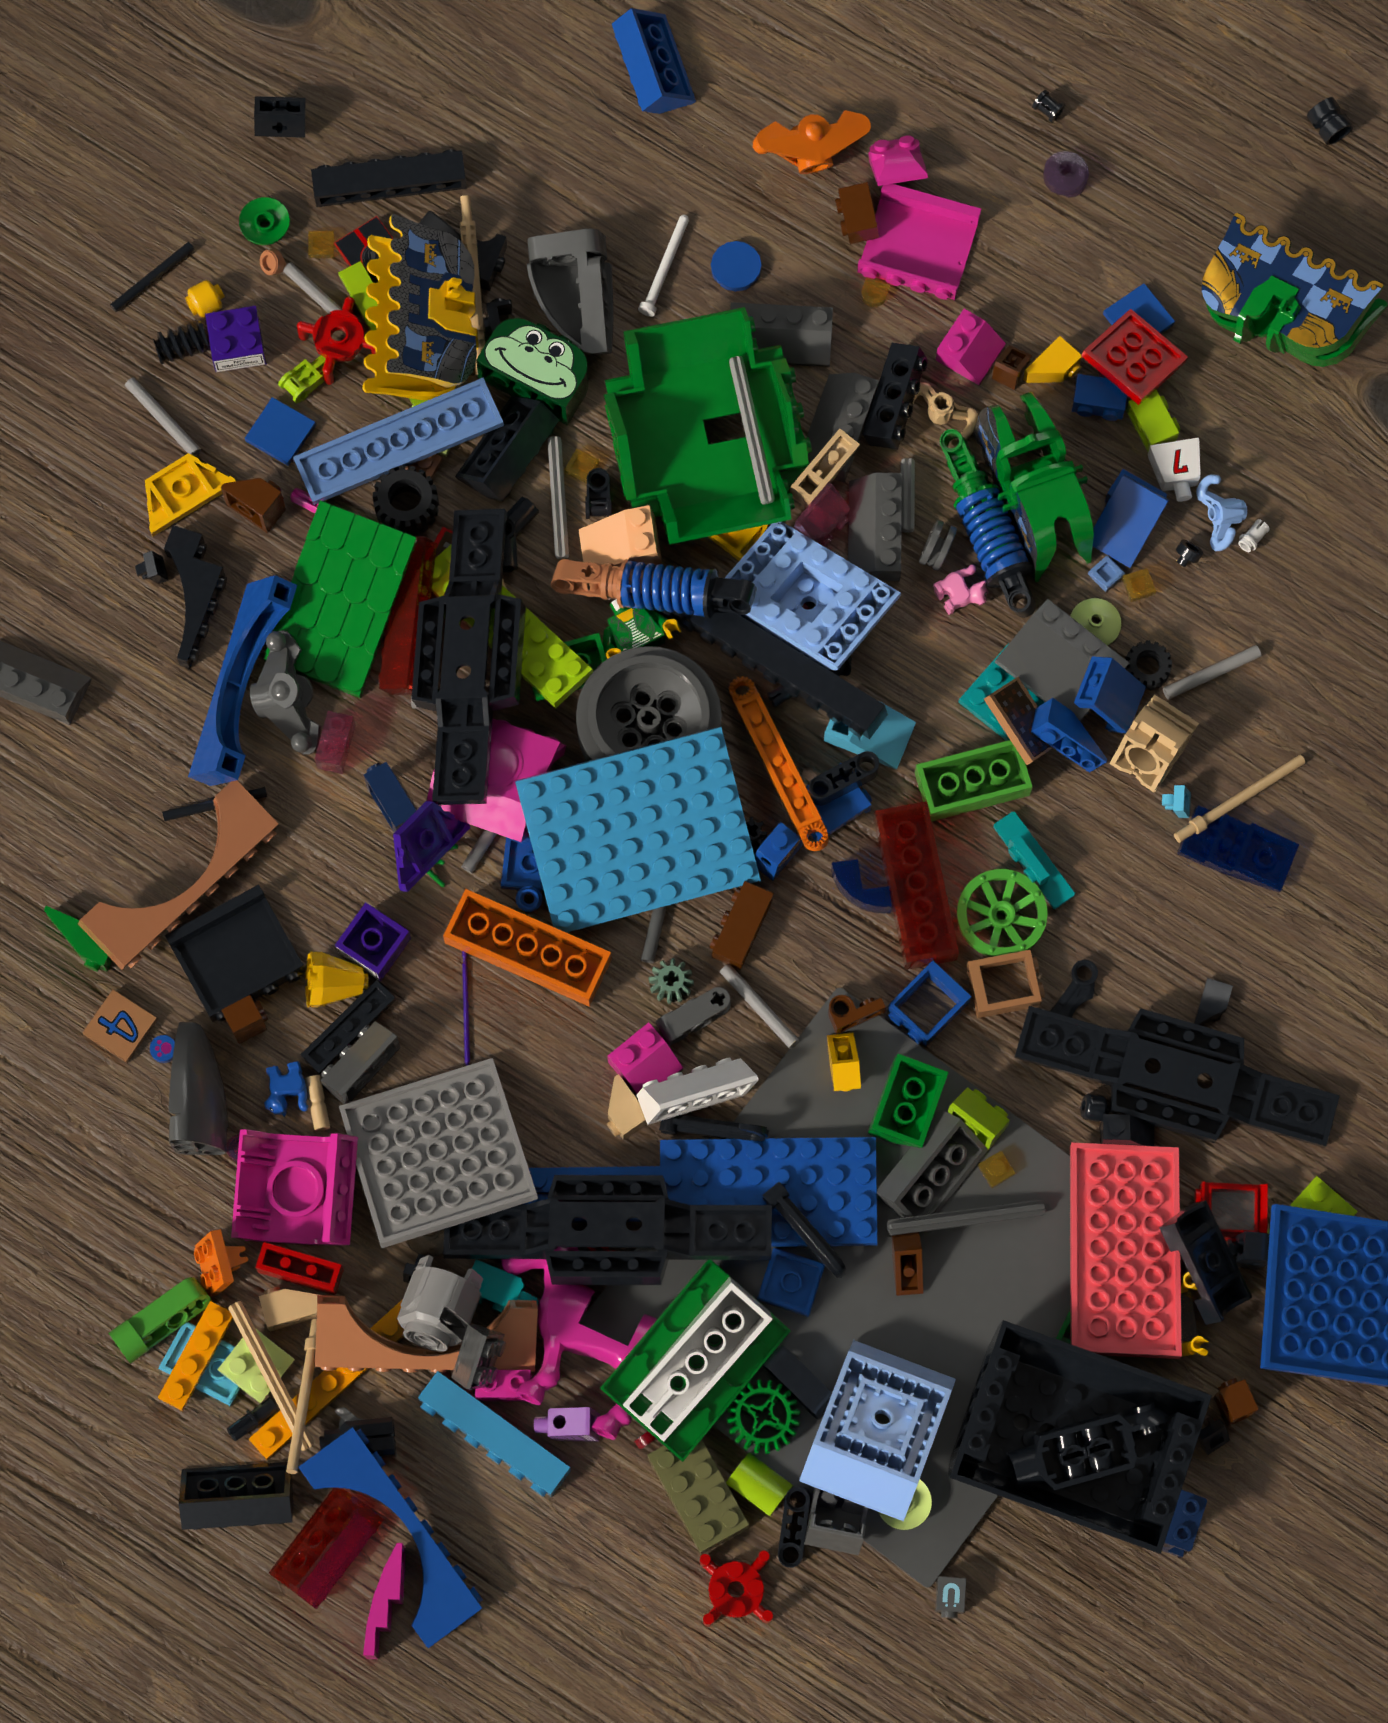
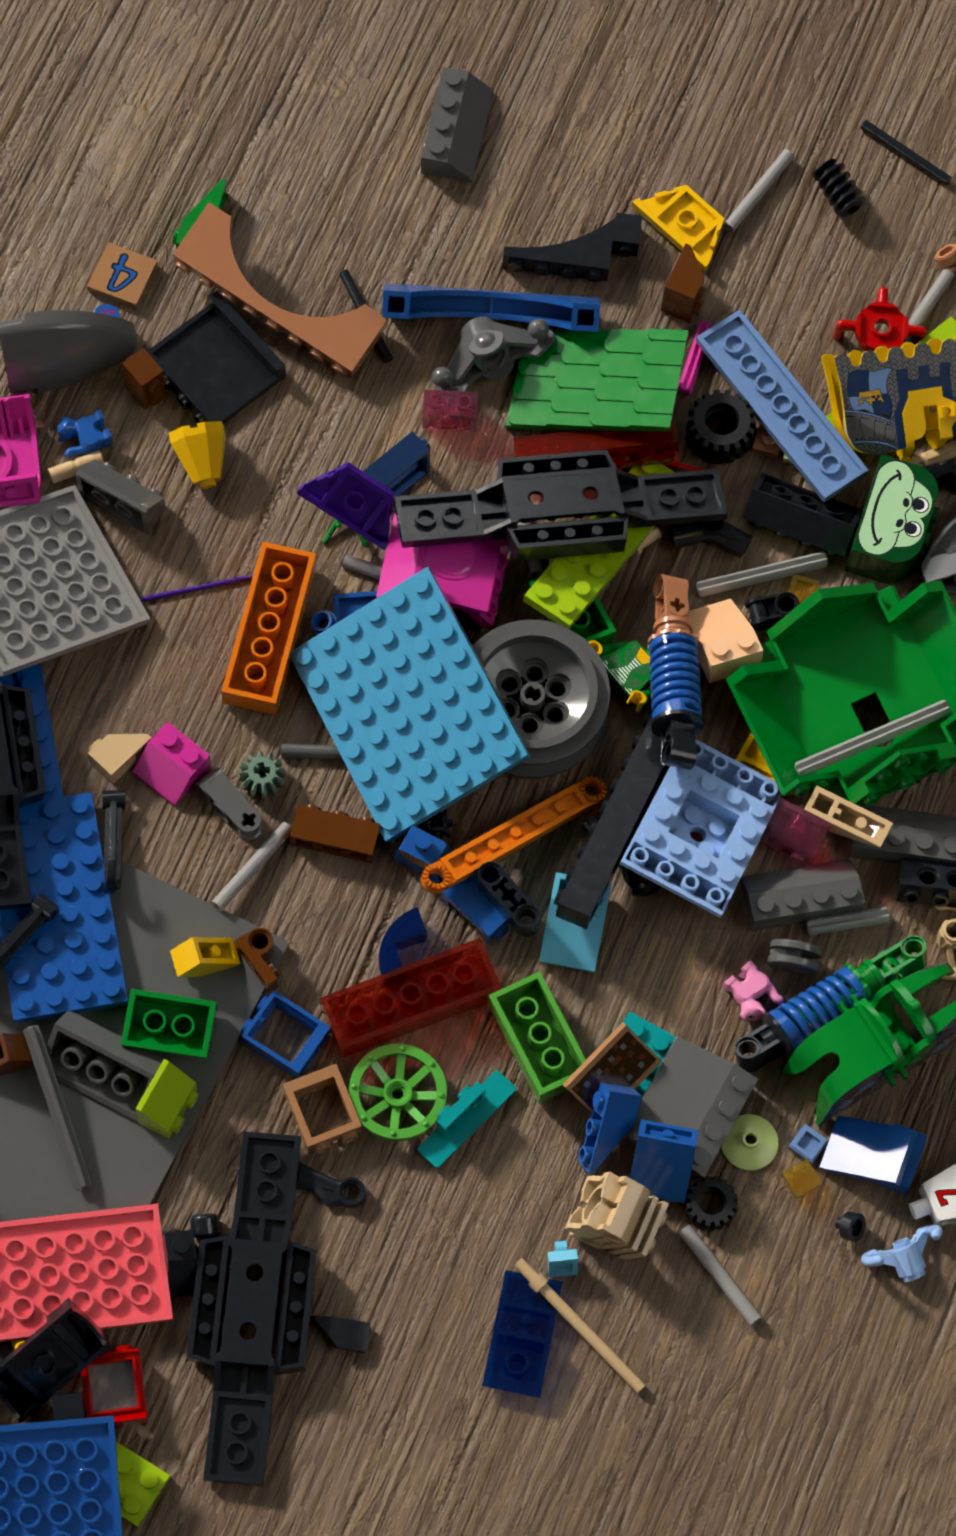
camera: 75 degrees right, 5 degrees down
(152, 568) = (596, 211): black tile -> none
(204, 298) = (893, 202): yellow head -> none
(235, 339) = (856, 237): dark purple brick -> none
(280, 431) = (770, 300): blue tile -> none
(303, 379) = (831, 307): lime connector -> none
(347, 1027) = (154, 475): black plate -> none
(373, 941) = (247, 482): dark purple brick -> none
(695, 1090) = (146, 813): white slope -> none
(996, 1169) = (117, 1133): clear yellow plate -> none
(1253, 536) = (887, 1294): white pin -> none

